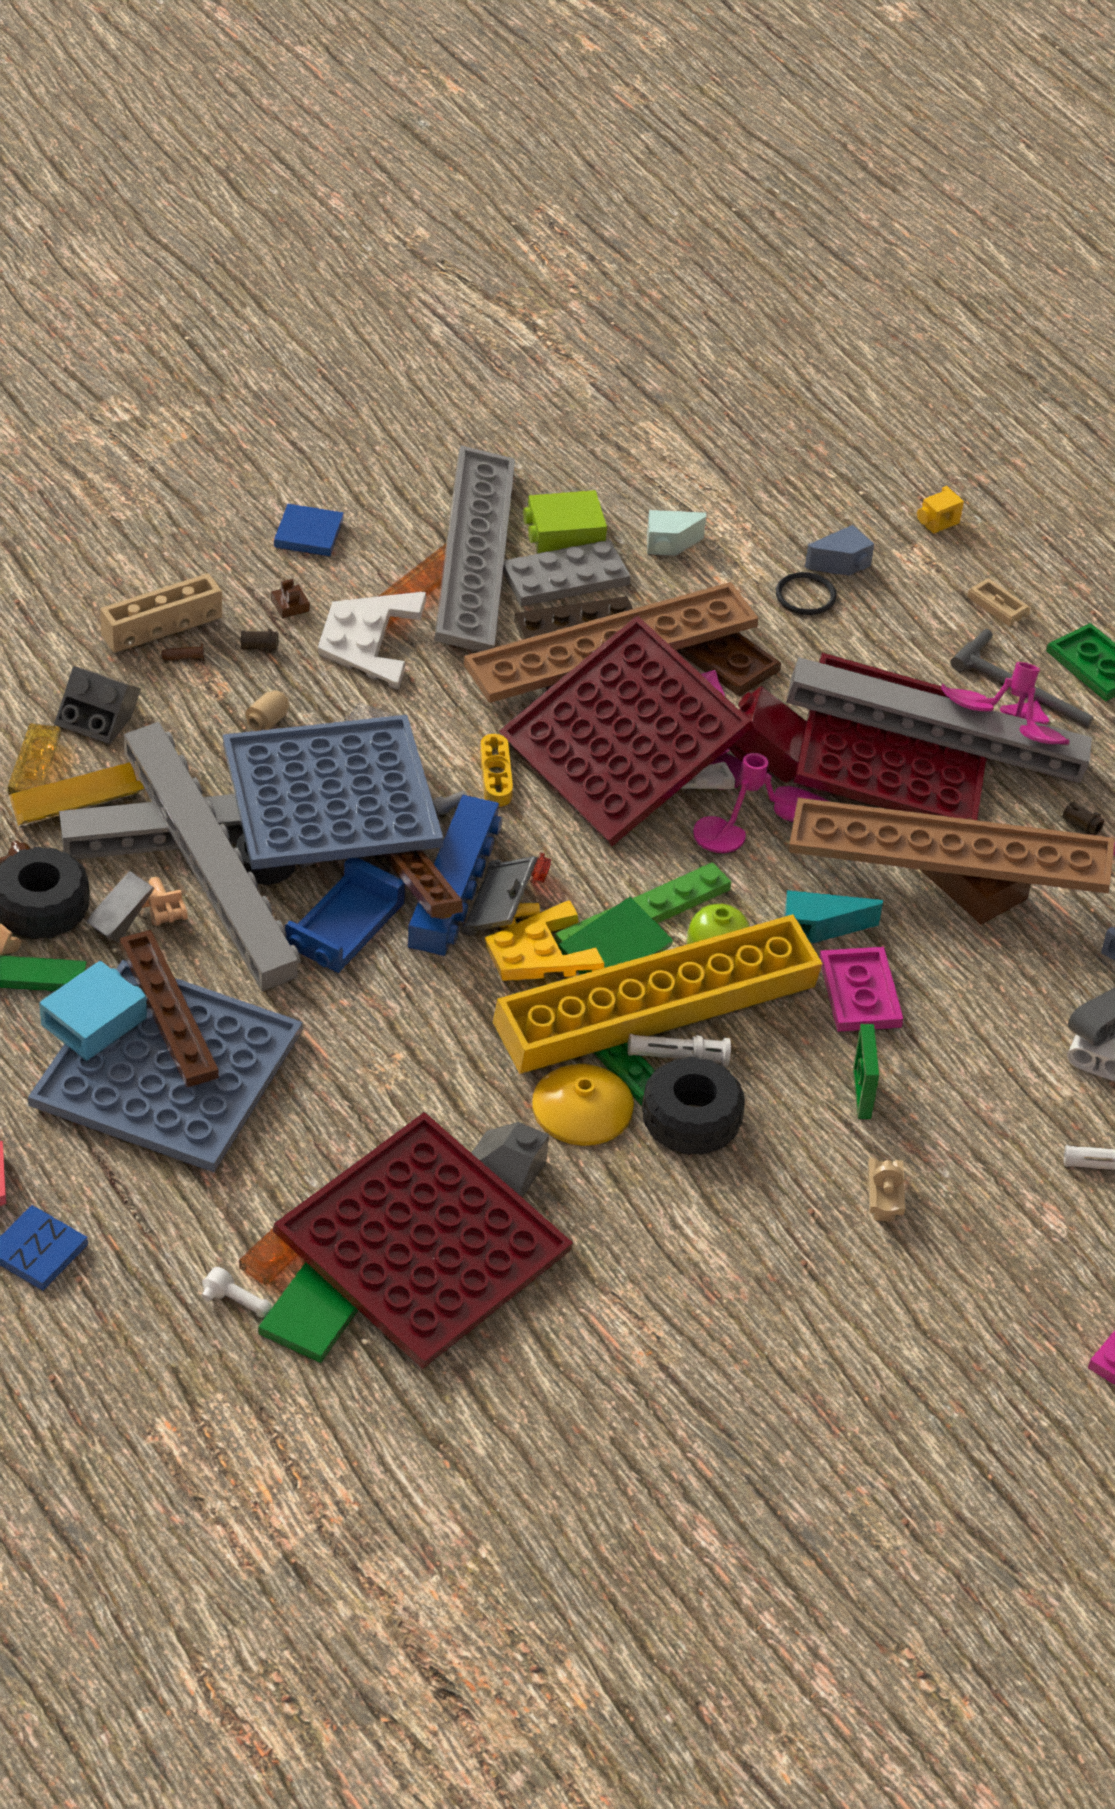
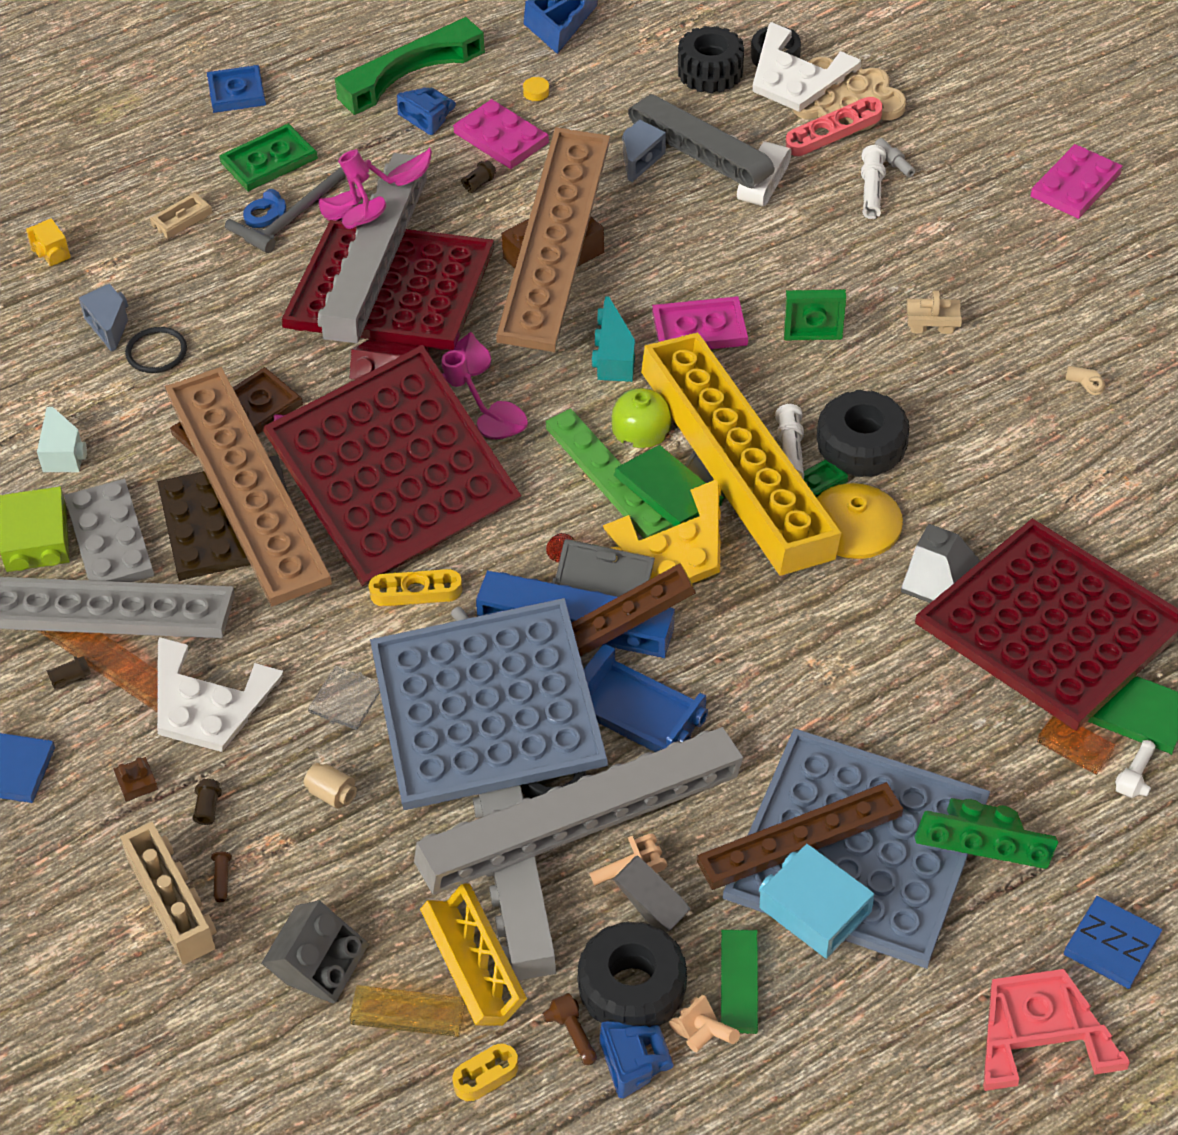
camera: 85 degrees left, 5 degrees up
(162, 1144) = (985, 833): none -> green bracket
(406, 556) = (69, 672): none -> dark brown pin
(798, 1333) = (1088, 378): none -> tan arm
(1021, 656) = (270, 199): none -> blue piece

